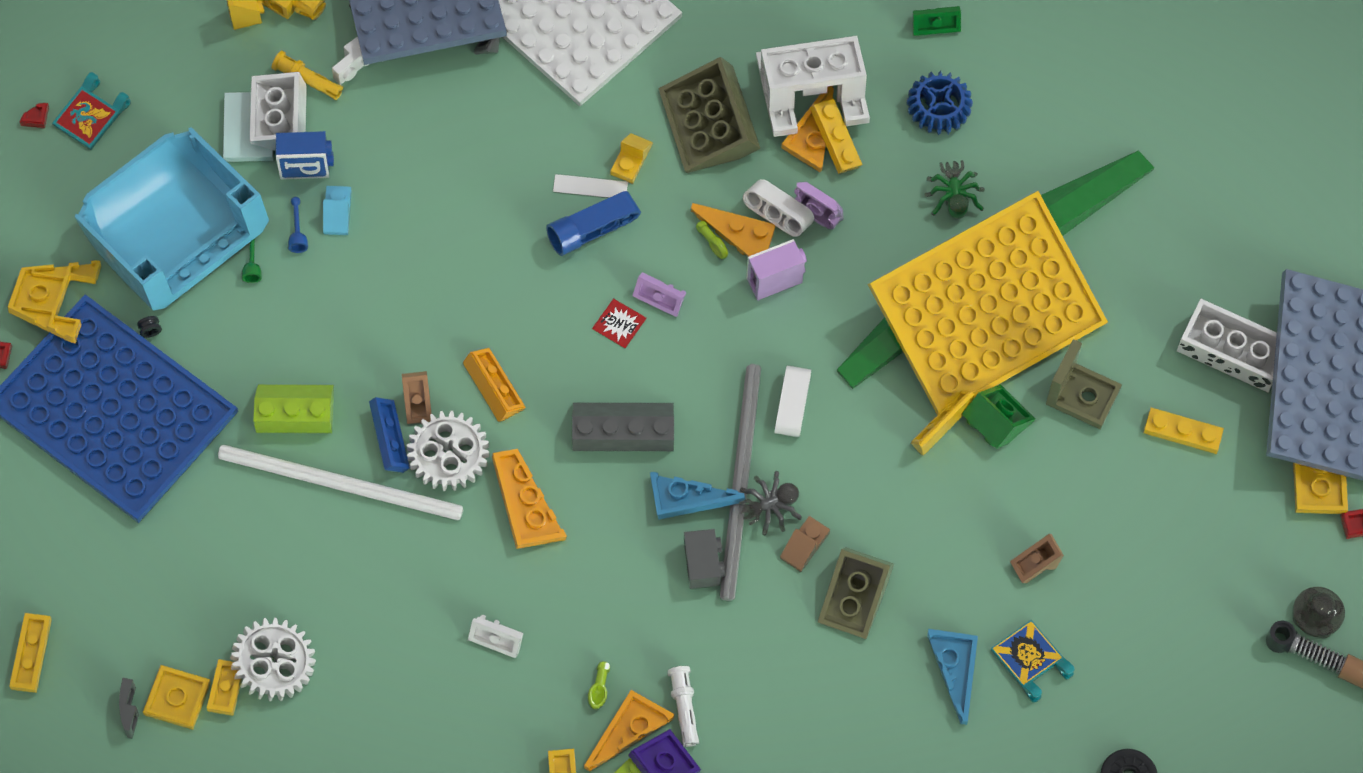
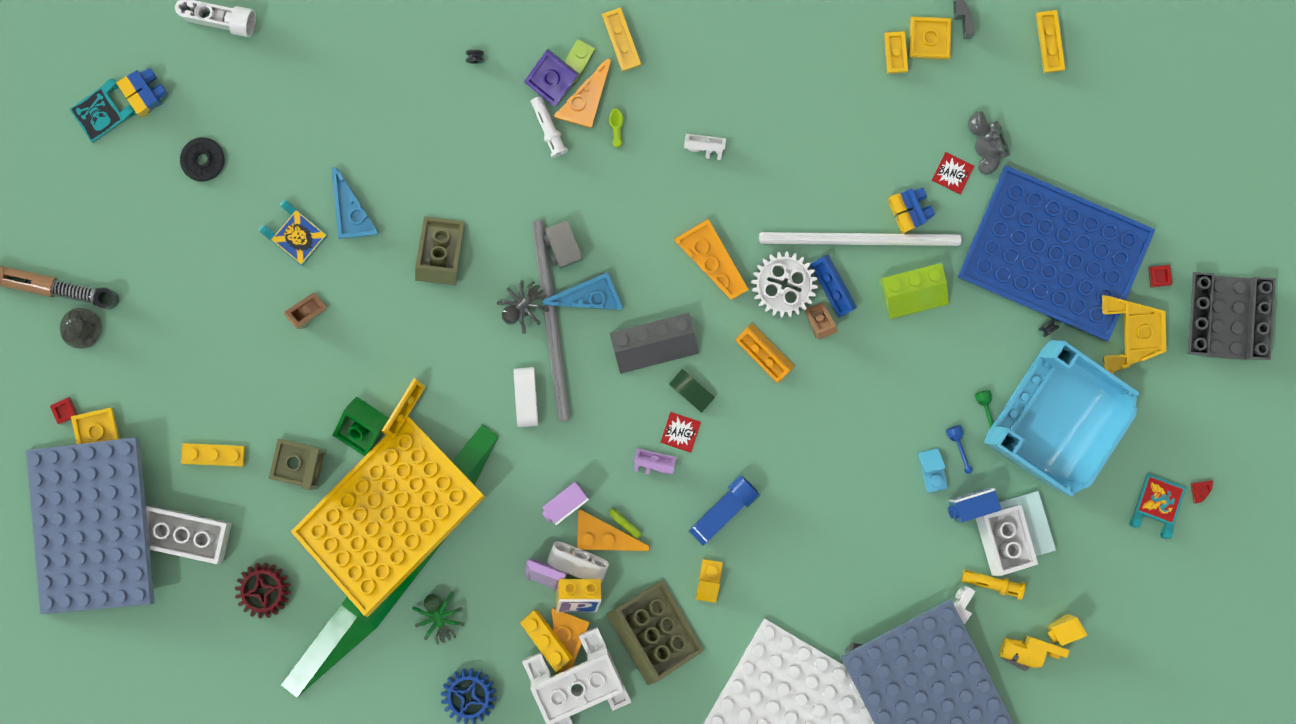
camera: 165 degrees right, 20 degrees up
(147, 550) = (989, 143): none -> dark grey animal
(202, 532) = (953, 173): none -> sticker
(272, 496) = (910, 200): none -> hips
(272, 681) = (871, 99): white gear -> none
(588, 186) = (735, 546): white sticker -> none
(594, 361) = (691, 390): none -> dark green slope
(786, 166) = (578, 595): none -> yellow piece
(804, 543) = (488, 282): medium nougat slope -> none
(1172, 263) = (245, 594): none -> dark red gear

